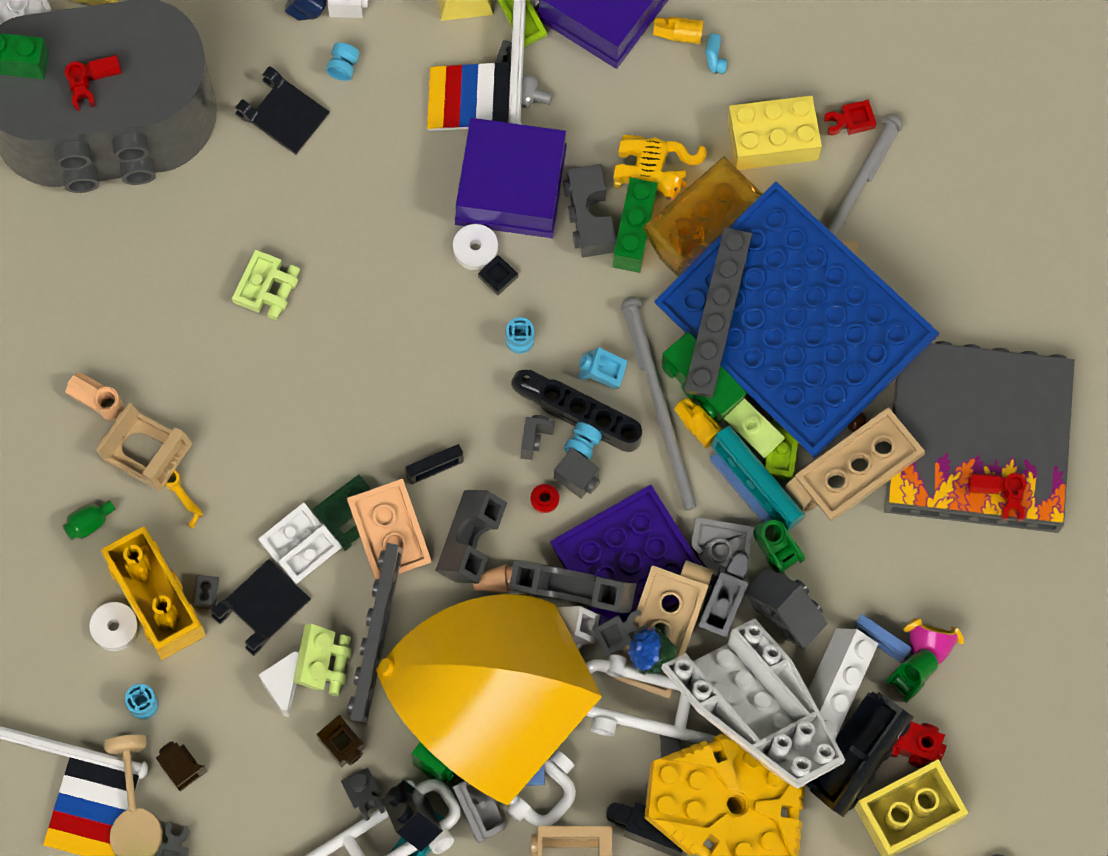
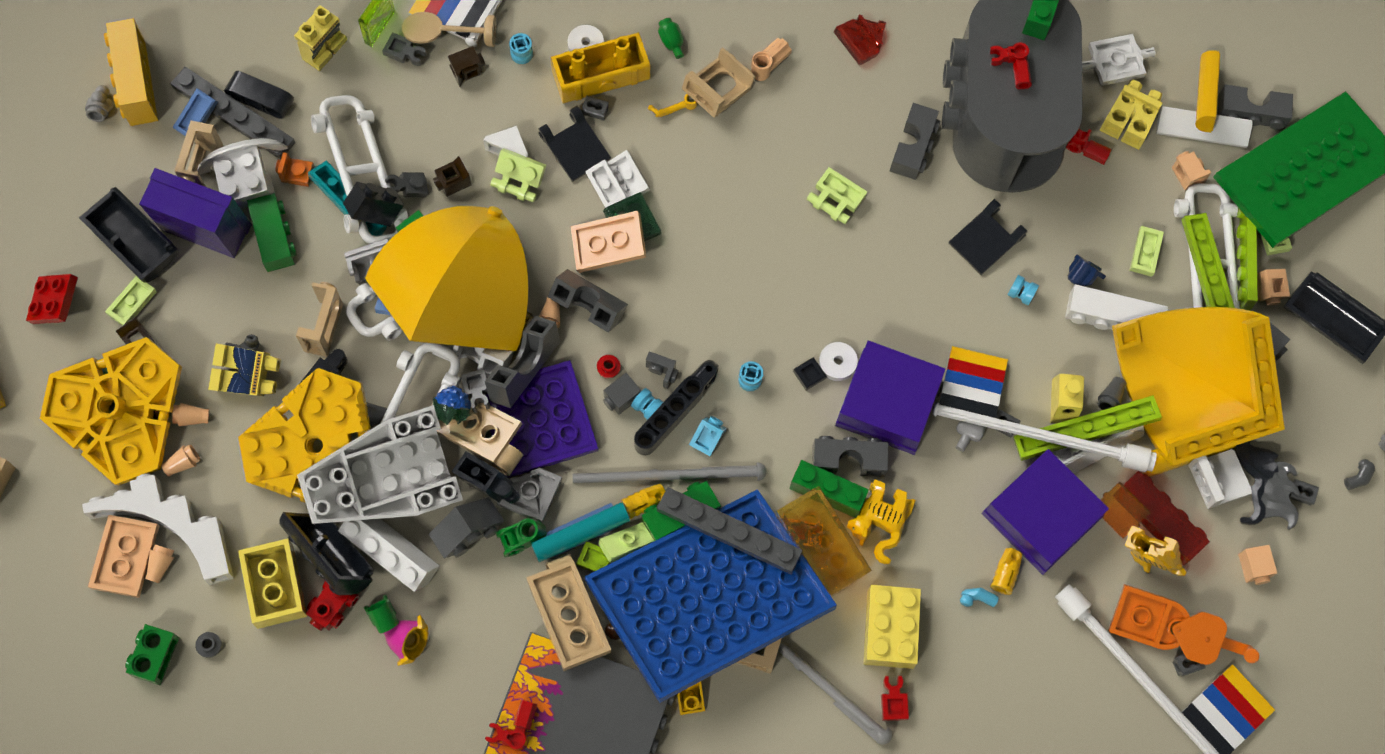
camera: 100 degrees right, 0 degrees up
(42, 296) = (861, 38): none -> clear red slope
(152, 202) = (909, 157): none -> dark grey arch
(377, 620) = (528, 215): dark grey plate -> none
(434, 464) = (656, 289): black tile -> none
(887, 642) = (421, 600): medium blue tile -> none

